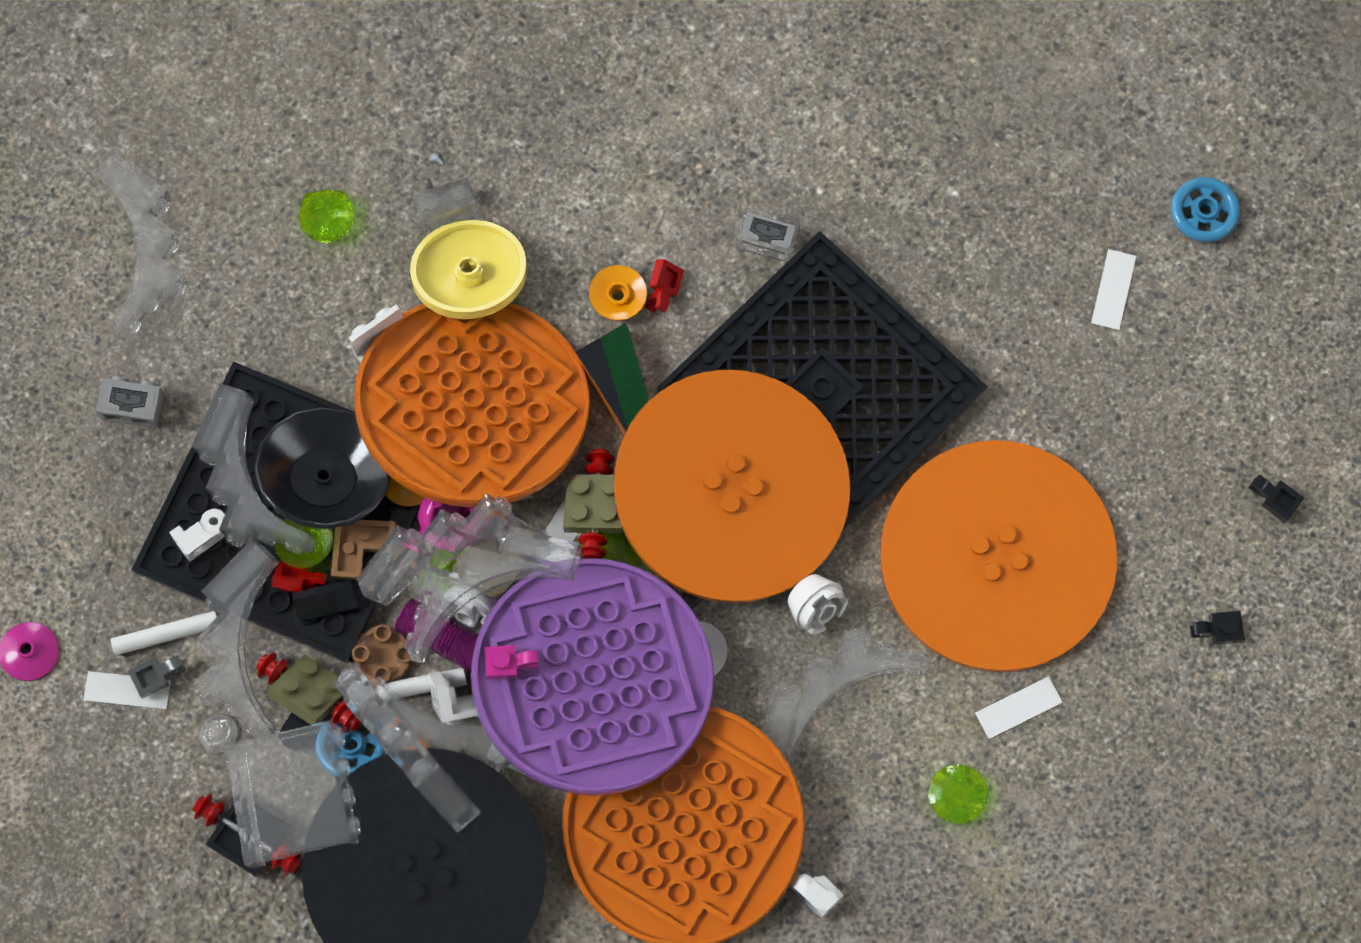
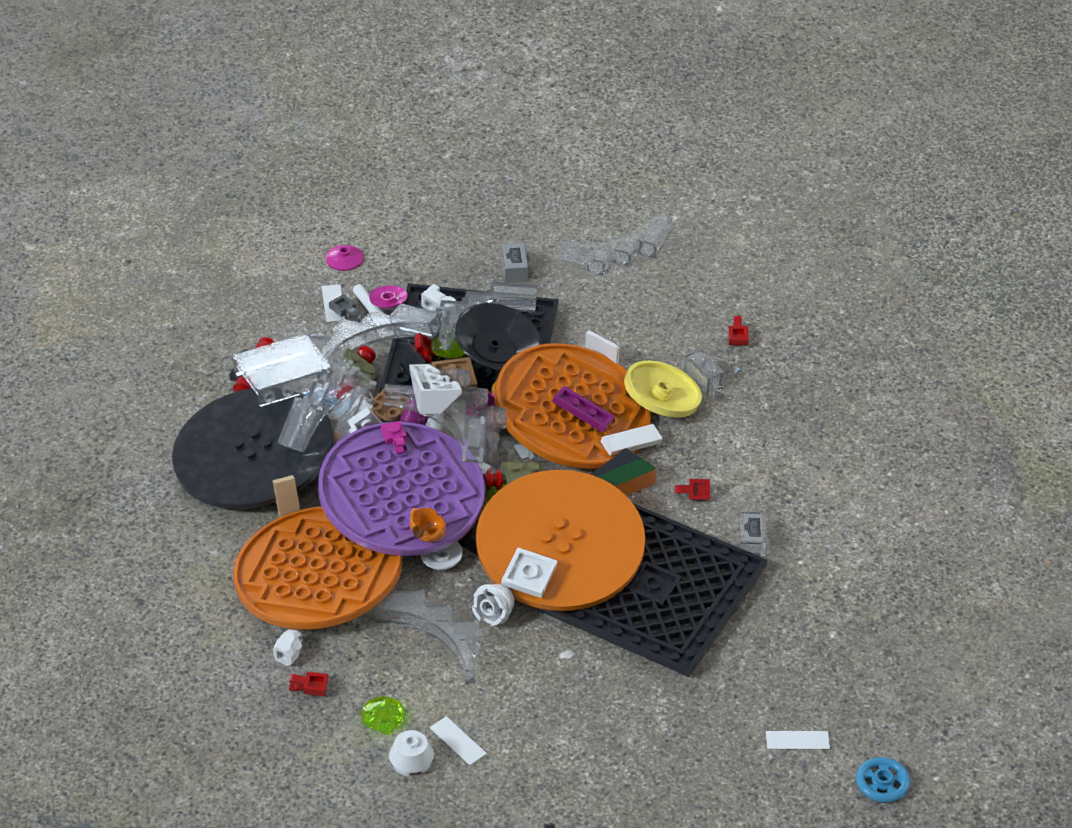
camera: 75 degrees right, 30 degrees down
(148, 596) = (388, 296): none -> dark pink dish
(325, 215) = (674, 322): clear neon green dish -> none
(375, 135) = (737, 333): none -> red plate
(450, 585) = (432, 390): none -> white wedge
(497, 388) = (583, 409): none -> magenta plate
(546, 841) = (286, 495): none -> tan tile
(555, 340) = (631, 439): none -> white tile
(617, 280) = (678, 466): light orange dish -> none
(691, 656) = (427, 524): none -> orange hair
(791, 542) = (529, 572): none -> white plate
(888, 875) = (312, 683): none -> red plate
(998, 556) = (566, 707): orange plate -> none
(1038, 772) = (411, 753): none -> white cone

